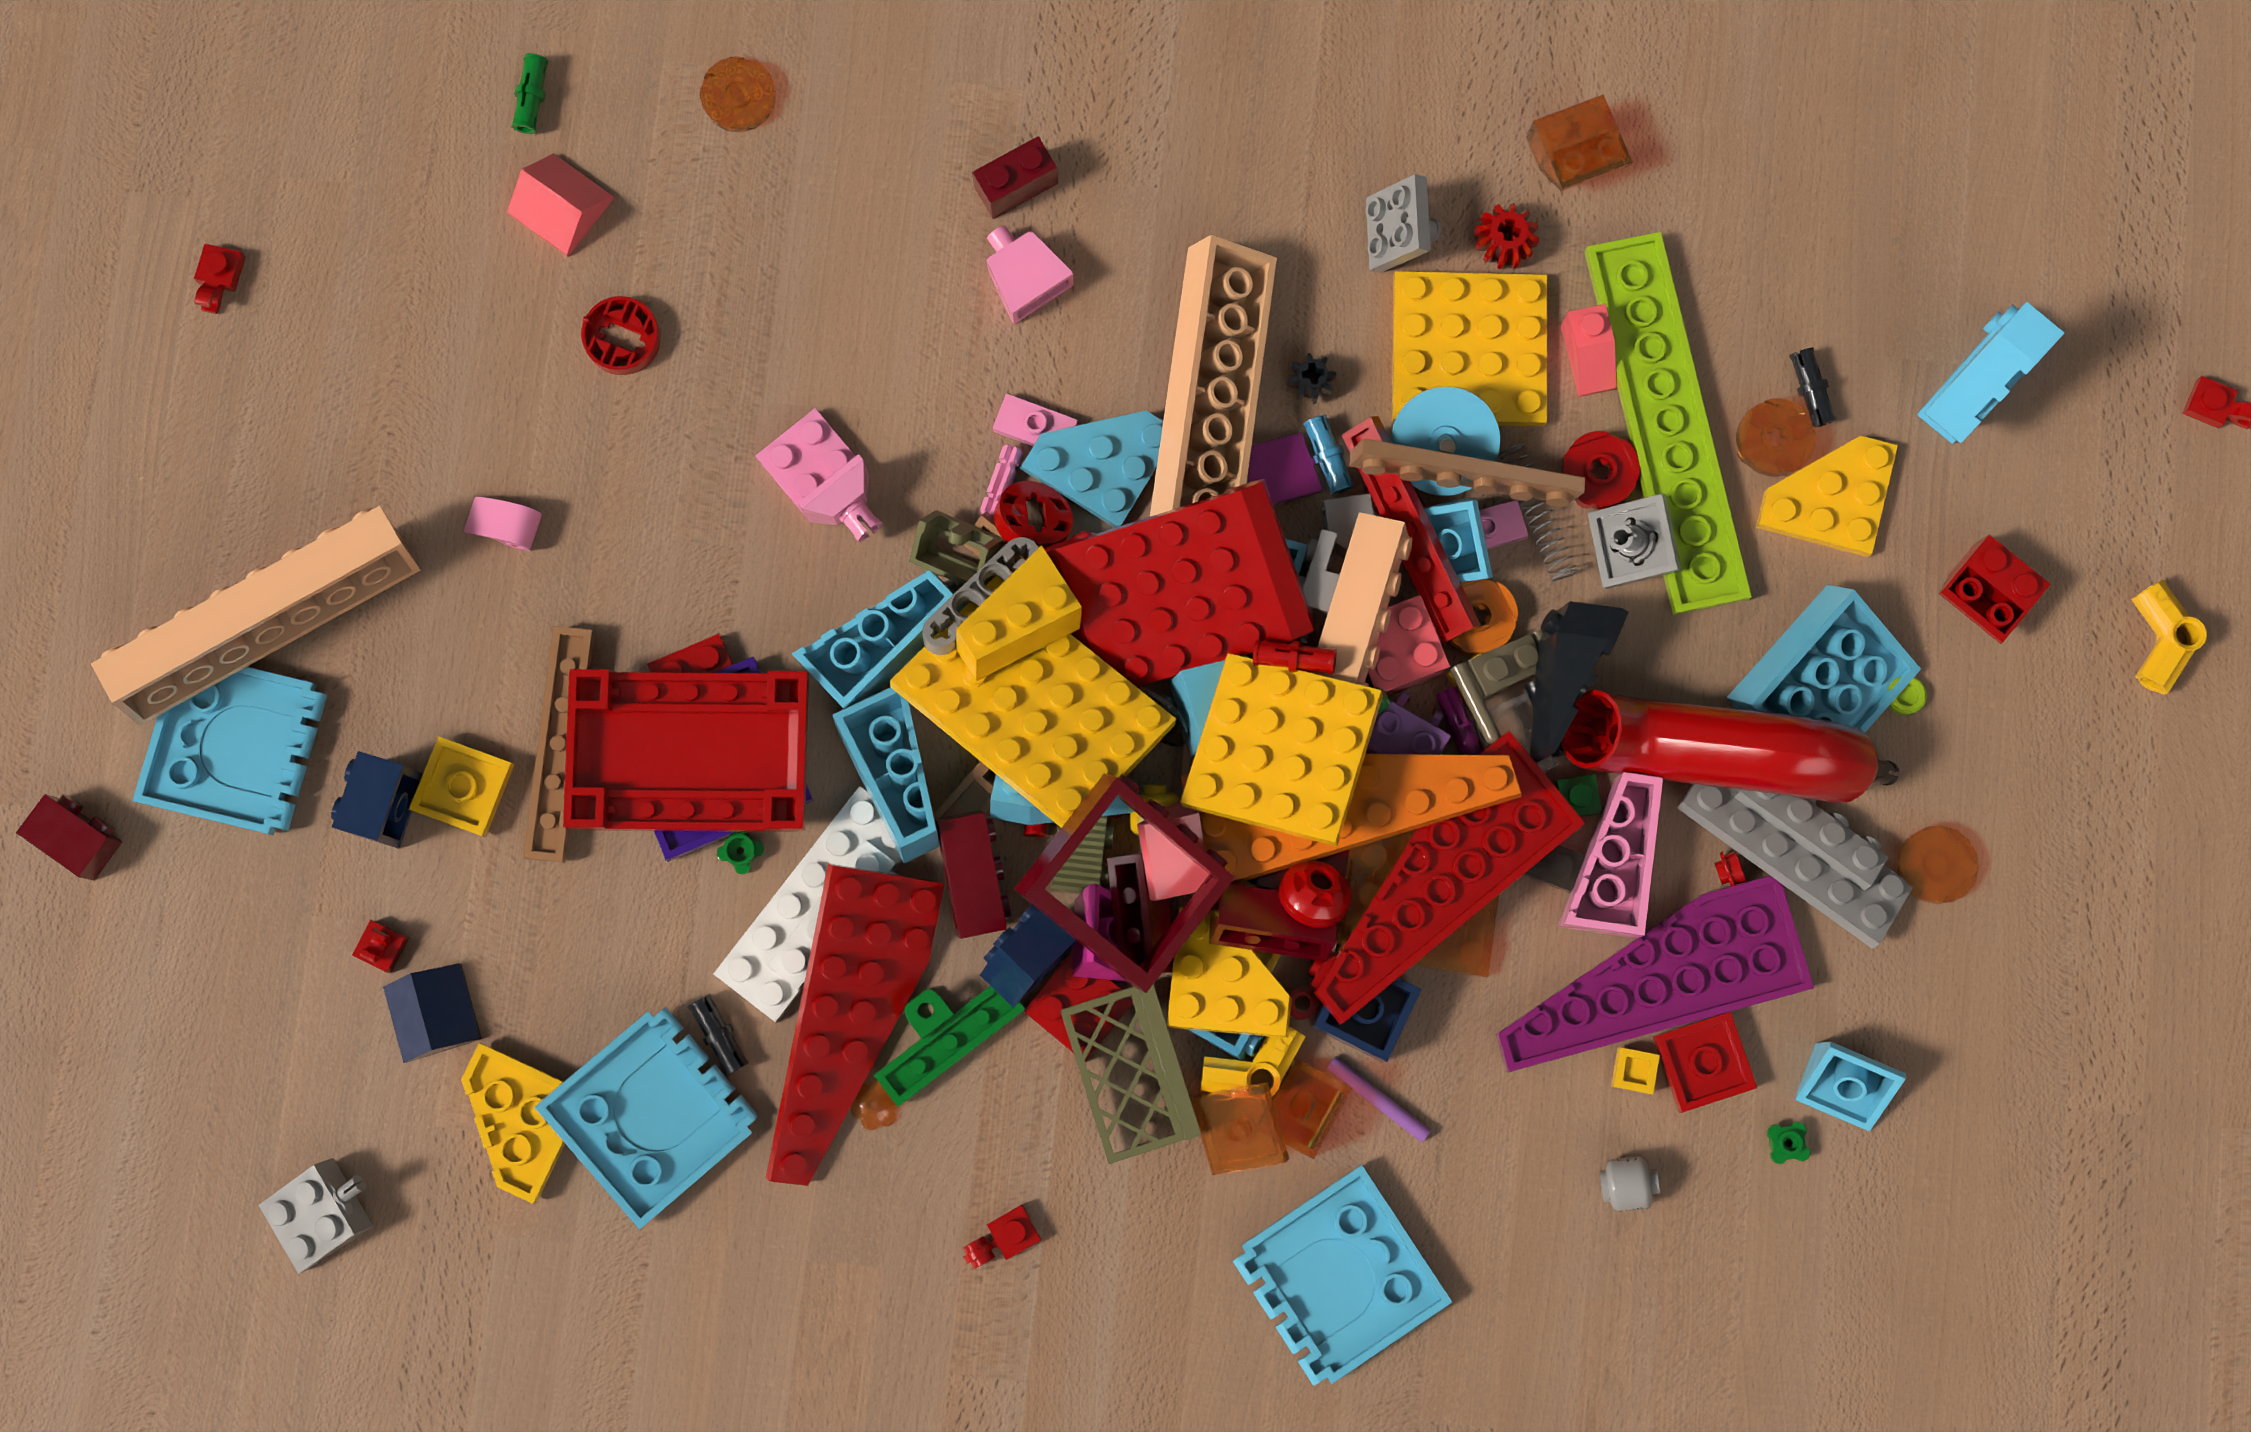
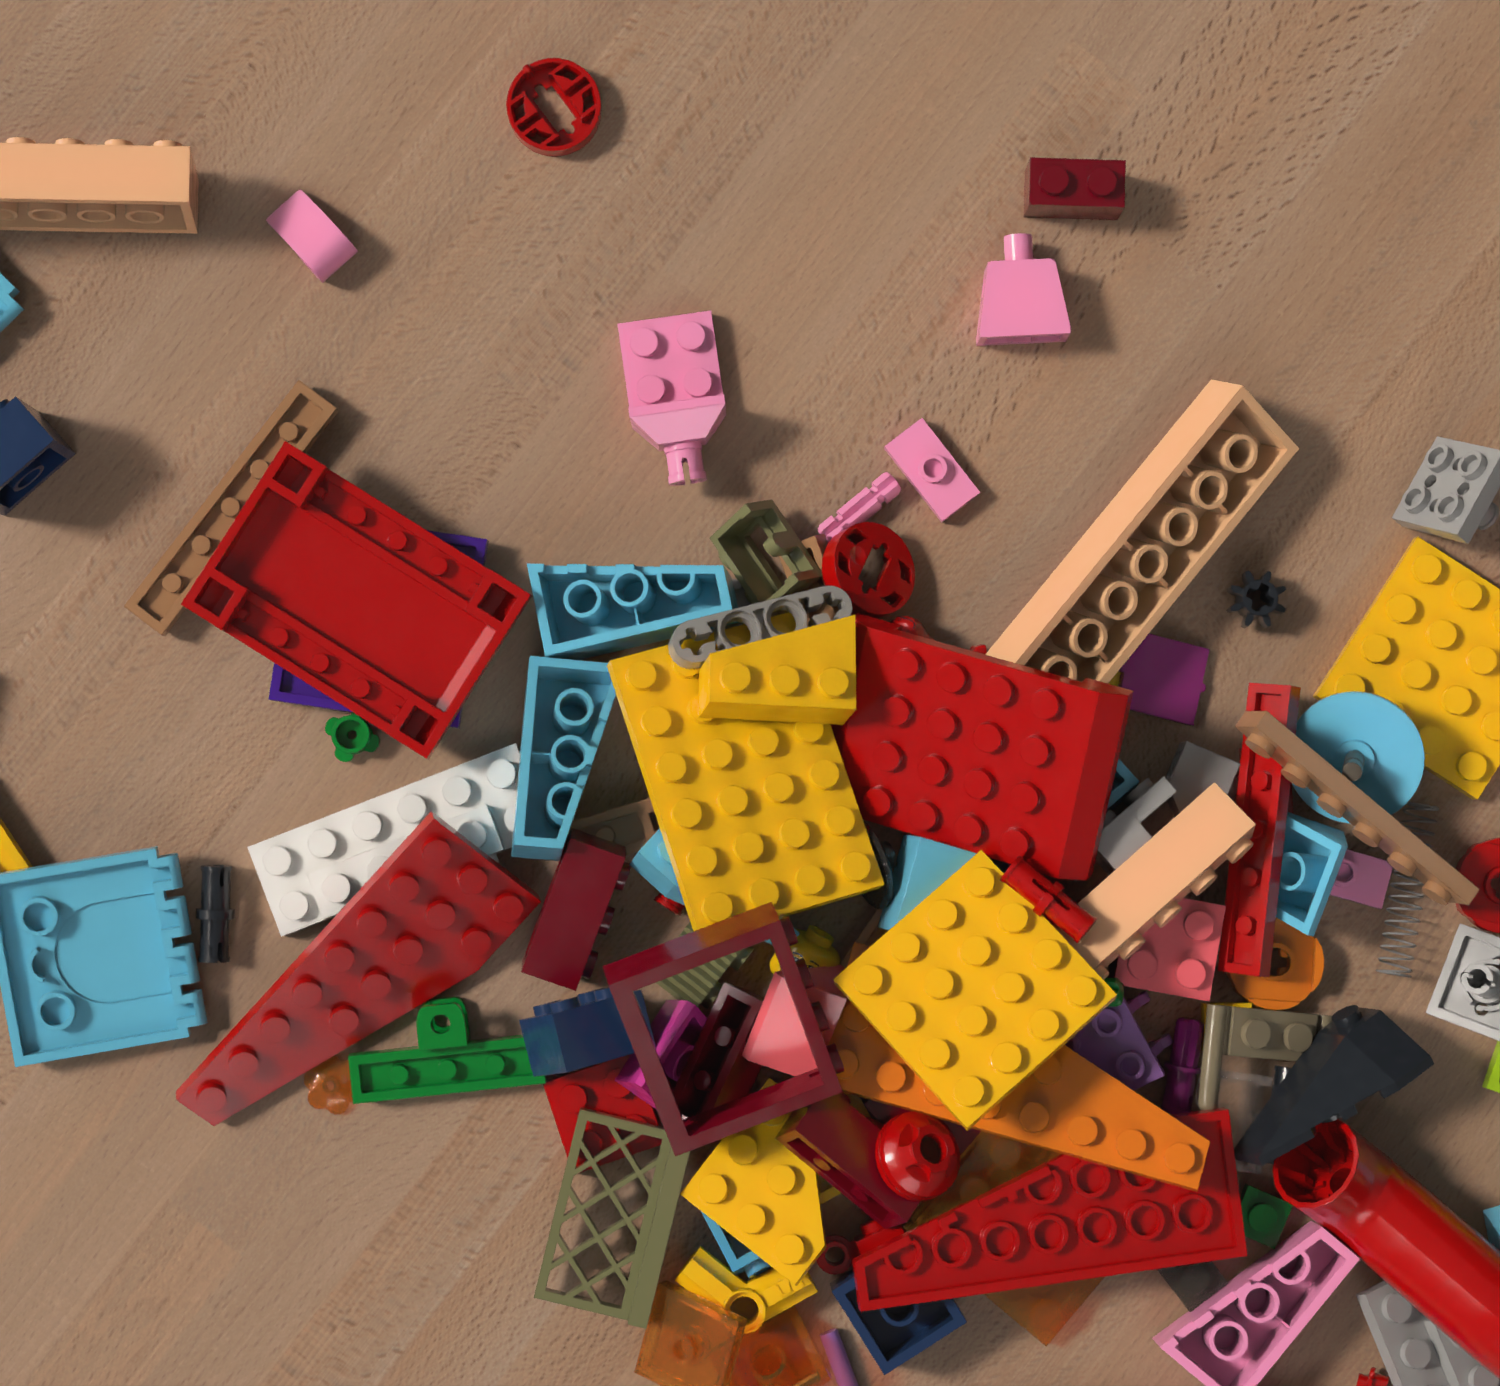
camera: 30 degrees right, 5 degrees up
(461, 786) = (105, 492): yellow plate -> none
(702, 657) = (427, 506): red plate -> none
(1011, 1233) = (392, 1303): red plate -> none
(1099, 462) = (975, 553): medium azure plate -> none
(1328, 454) = (1223, 691): dark azure pin -> none

